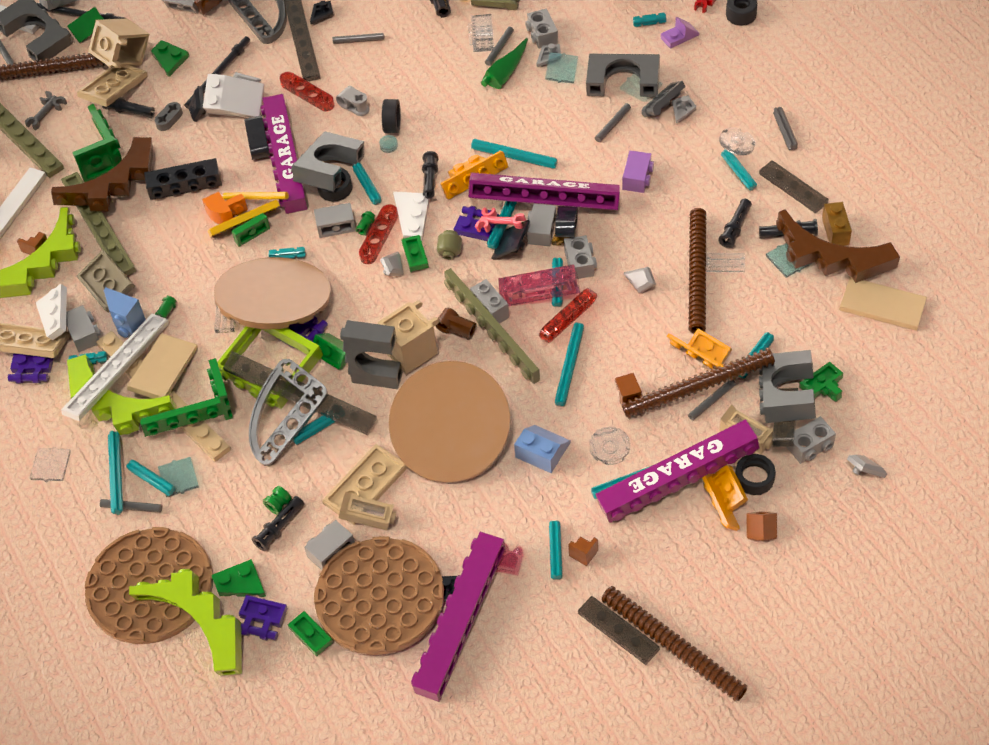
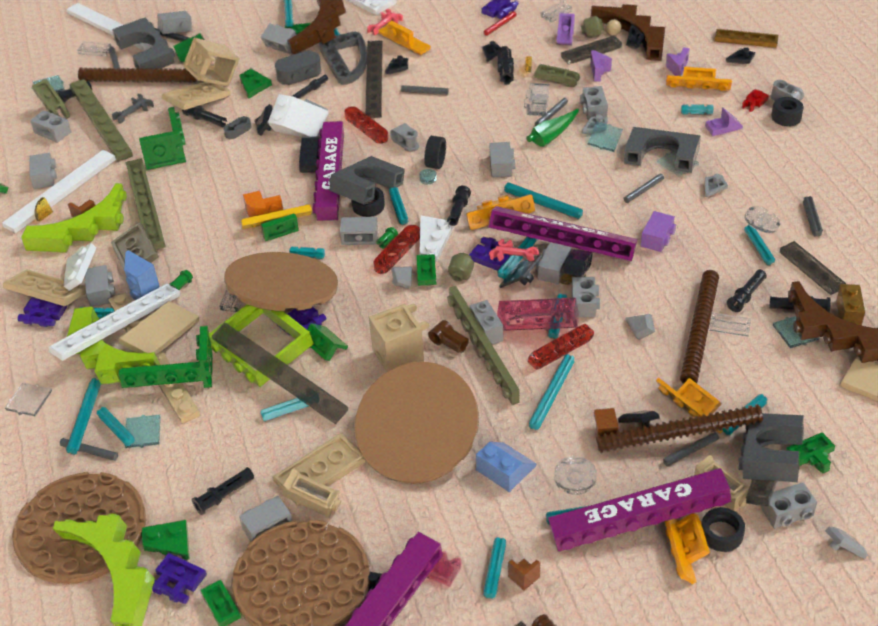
camera: 10 degrees right, 10 degrees down
(116, 182) = (172, 170): reddish brown arch -> none
(183, 179) = (232, 177): black brick -> none
(213, 31) = (298, 67): none -> dark grey brick
(257, 195) = (297, 199): yellow bar -> none
(277, 499) = (228, 468): green wheel -> none
(295, 413) = (268, 389): beam -> none
(363, 368) = (347, 361): dark grey arch -> none
(460, 112) = (501, 159): none -> light grey brick
(659, 376) = (639, 417): none -> black piece
(662, 99) = (696, 174): dark grey plate -> none
(762, 525) = (720, 583): dark orange panel -> none

